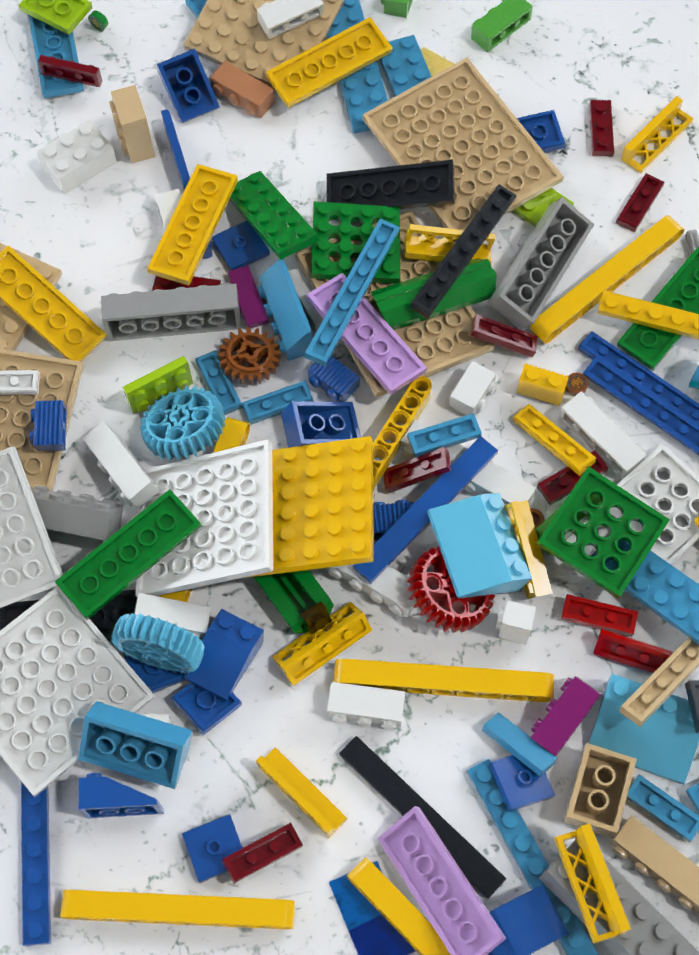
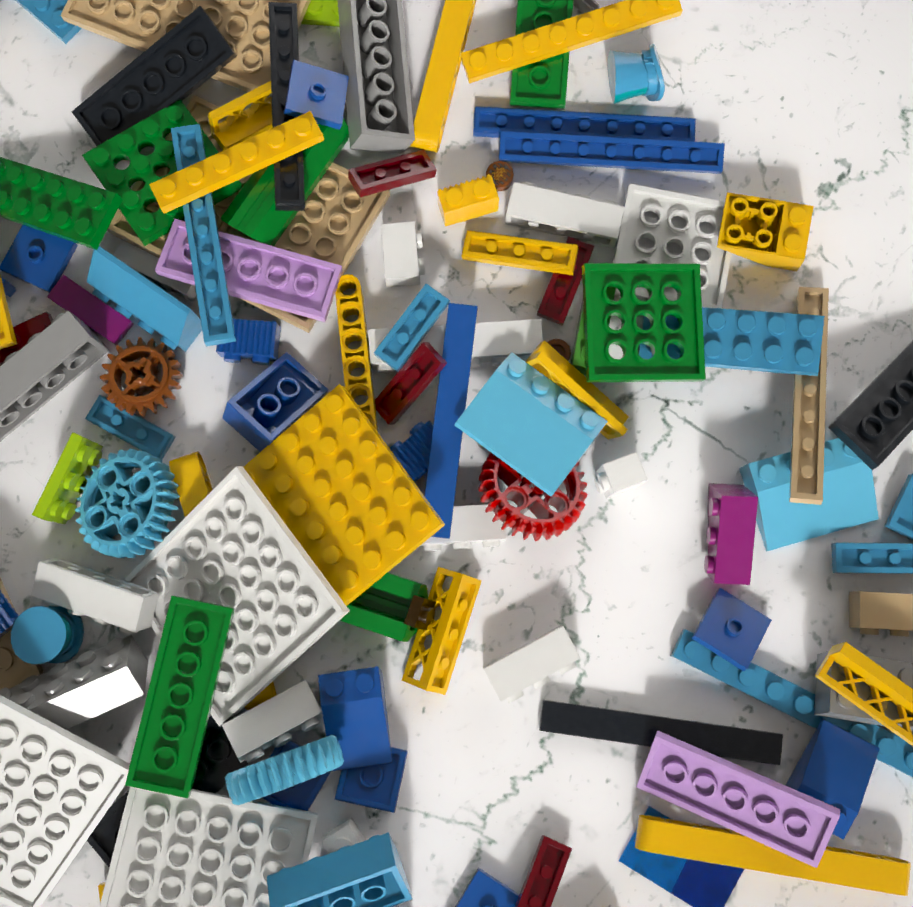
camera: 35 degrees left, 15 degrees up
(74, 468) = (47, 635): none -> dark azure hat
(275, 402) = (208, 406): dark azure tile -> none
(301, 792) = (531, 796): yellow fence -> none
(406, 262) = (236, 162): none -> yellow plate
(447, 680) = (586, 584): yellow beam -> none
(487, 255) = (316, 91): none -> plate
(519, 744) = (706, 596): dark azure tile -> none
(599, 615) = (689, 407): red plate -> none
(600, 790) = (813, 588): tan brick -> none
(630, 651) = (747, 423): red plate -> none

